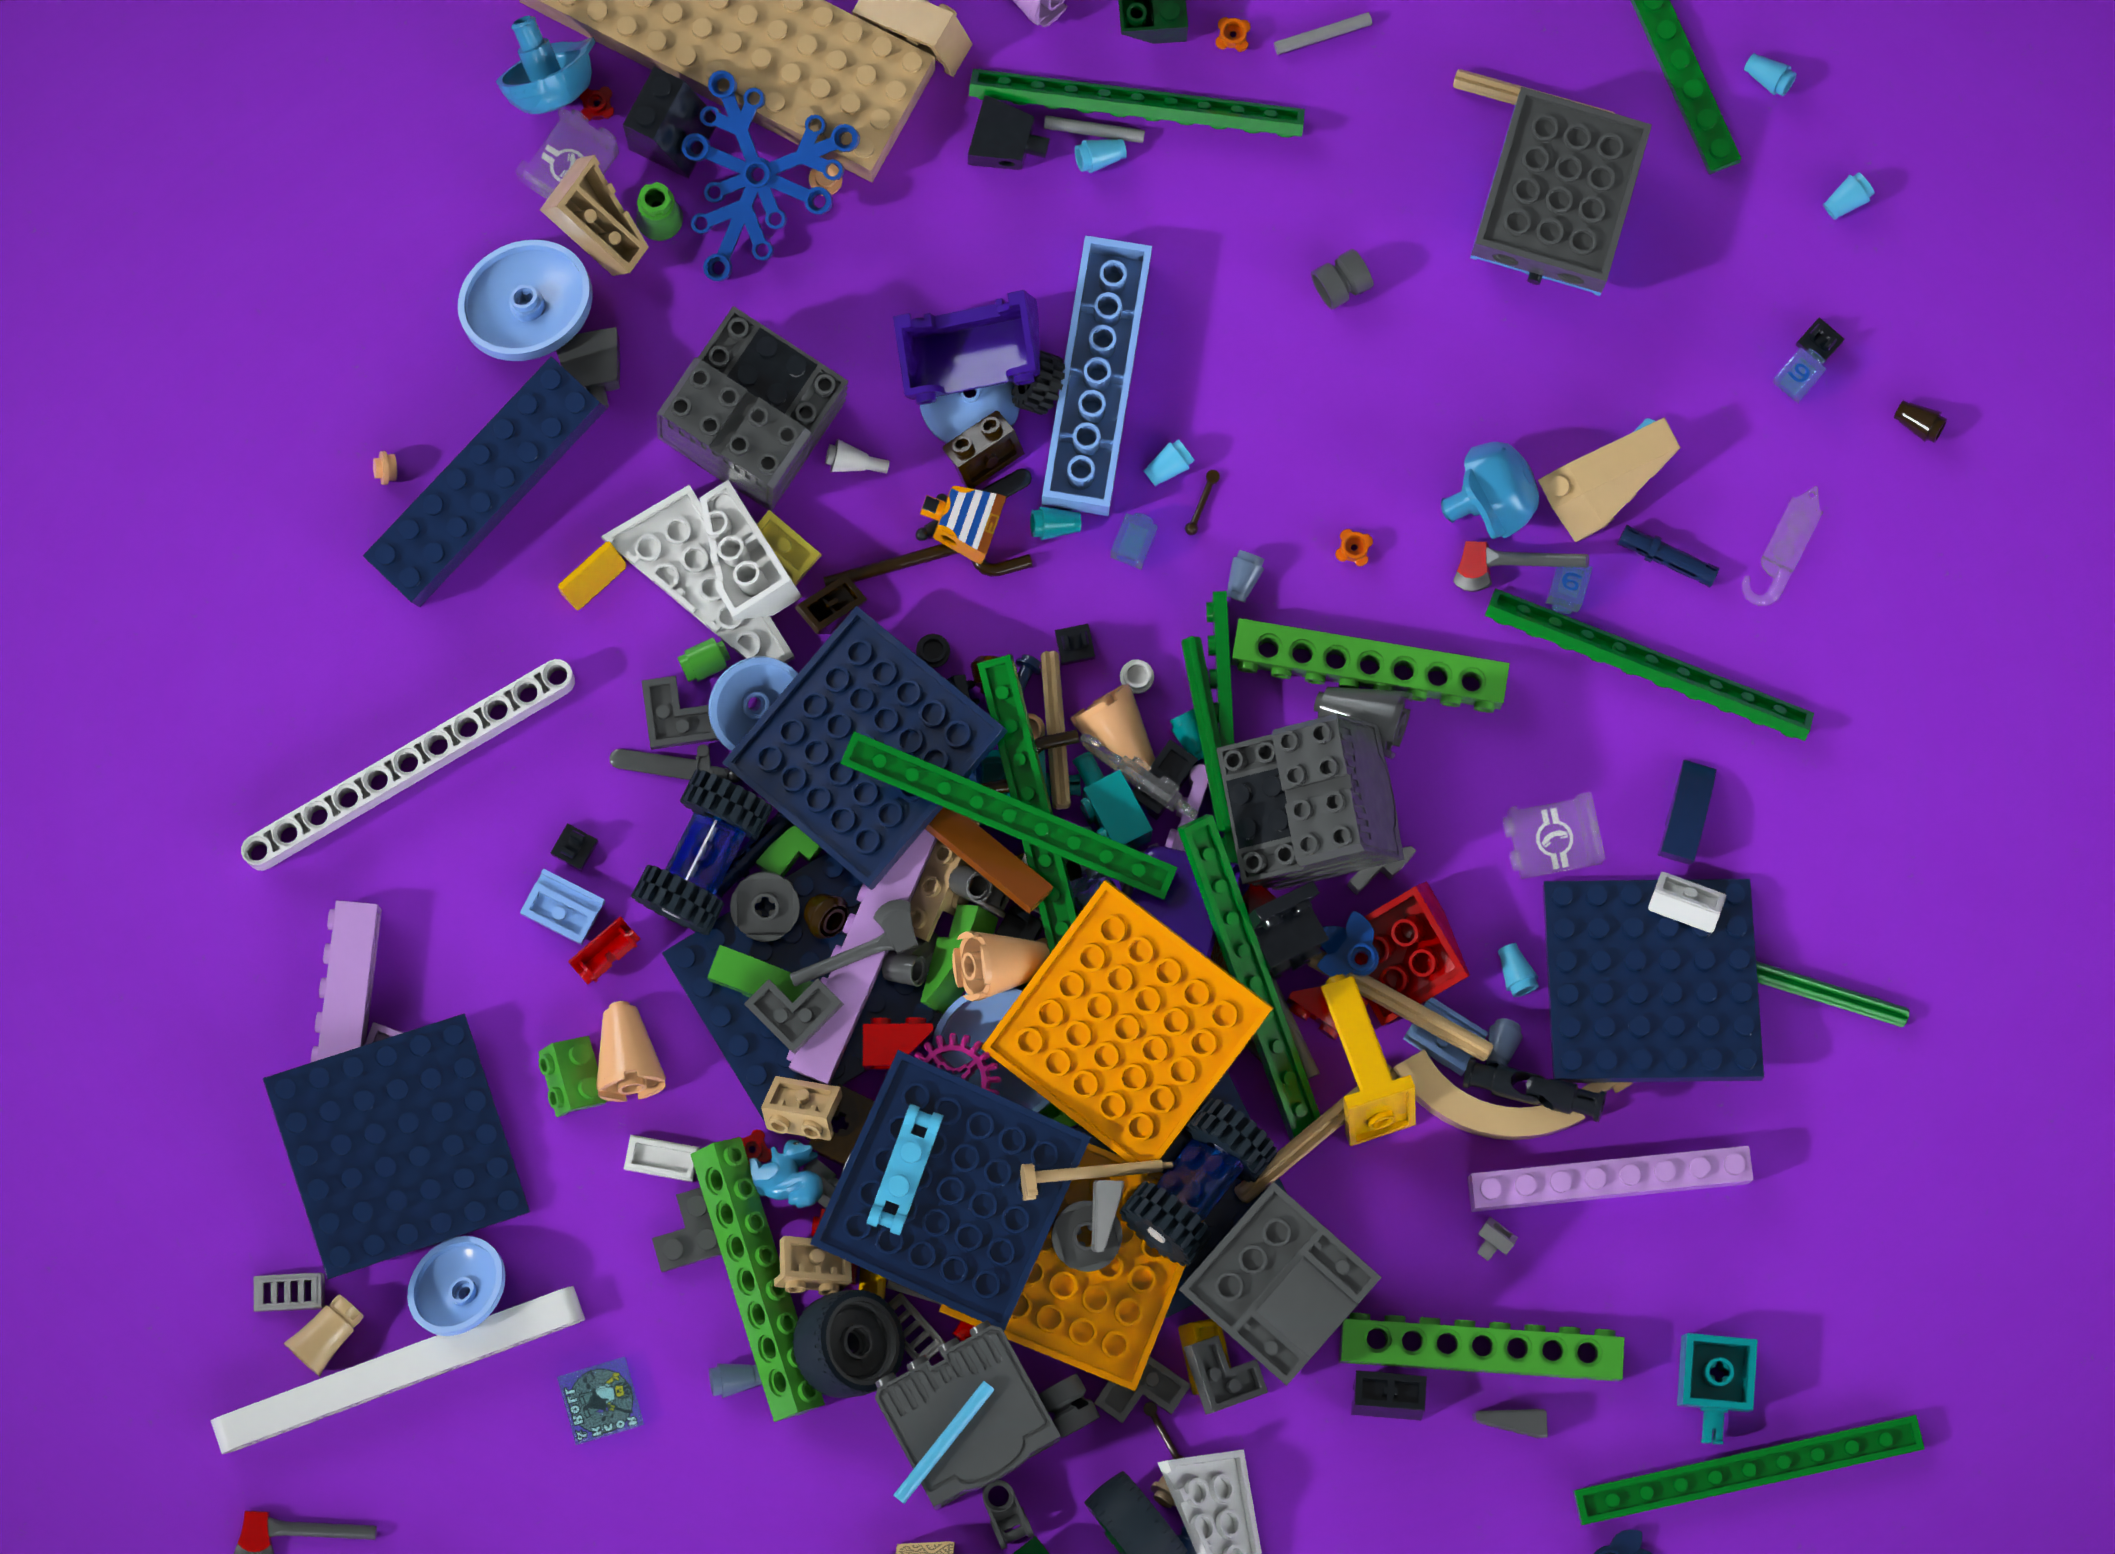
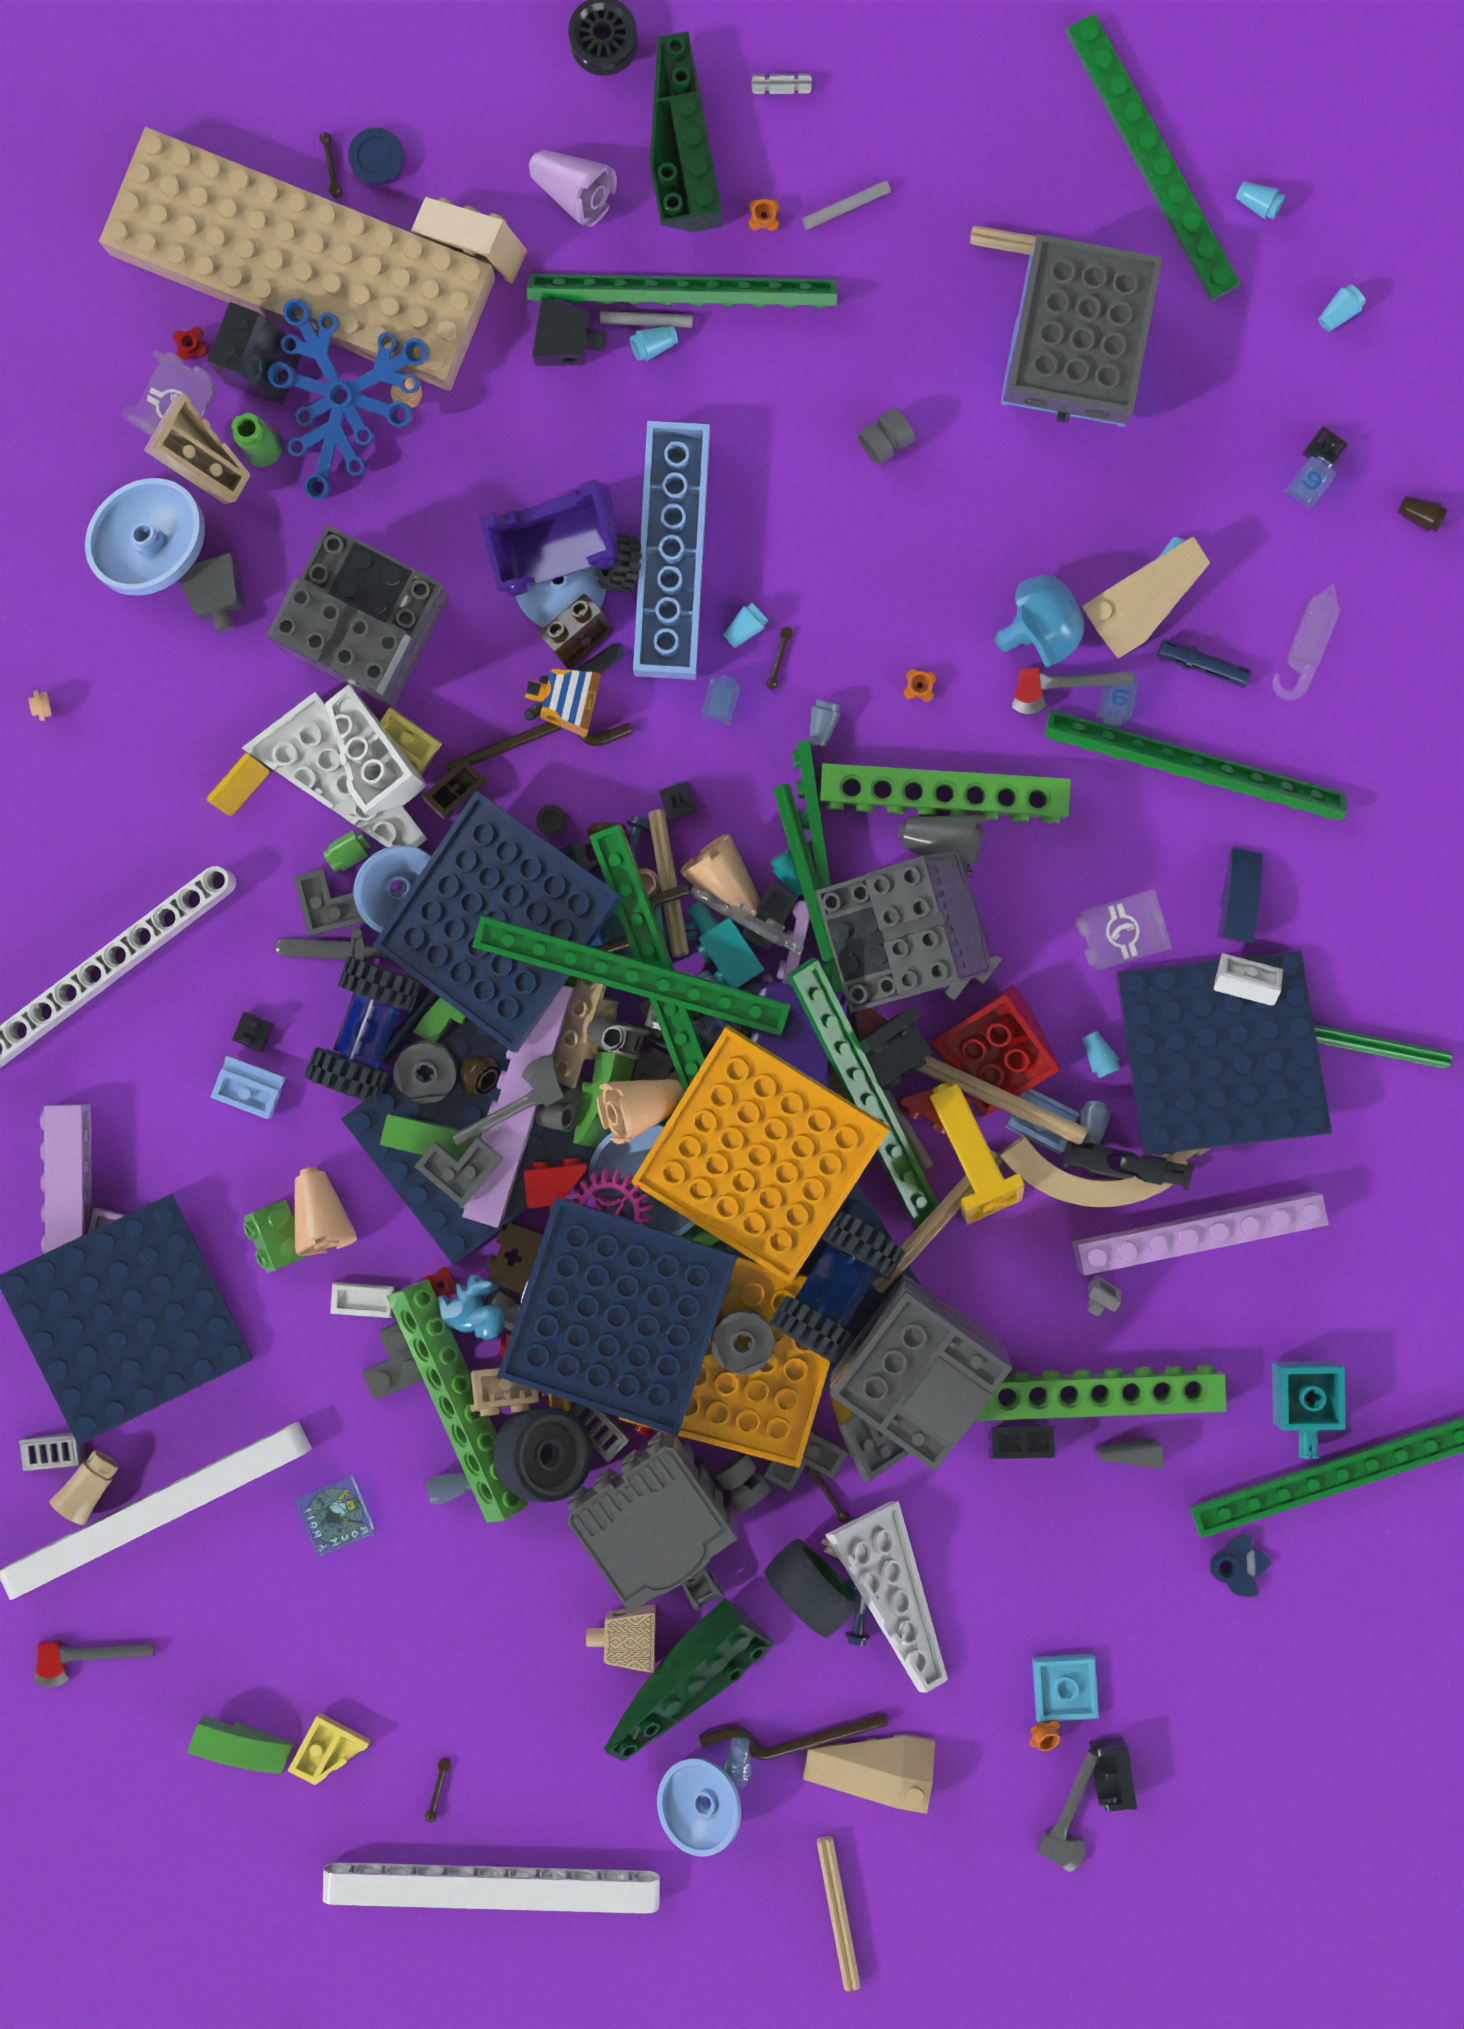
camera: 10 degrees left, 10 degrees up
(447, 1276) = (182, 1436): light blue dish -> none
(484, 482) = (128, 710): dark blue brick -> none
(547, 73) = (136, 321): dark azure piece -> none
(604, 950) = (289, 1122): red hinge -> none
(801, 1108) = (477, 1249): tan bracket -> none
(848, 458) = (456, 652): white cone -> none
(905, 1169) = (573, 1305): medium azure plate -> none
(943, 1442) = (632, 1558): medium azure bar -> none
(990, 859) = (622, 1015): dark orange tile -> none
(1030, 1177) = (687, 1301): tan piece -> none
(1054, 522) = (647, 691): teal cone -> none
(1105, 1205) = (756, 1312): light grey slope -> none
(1137, 675) = (736, 824): white plate -> none
(1346, 944) = (947, 1049): blue plate -> none

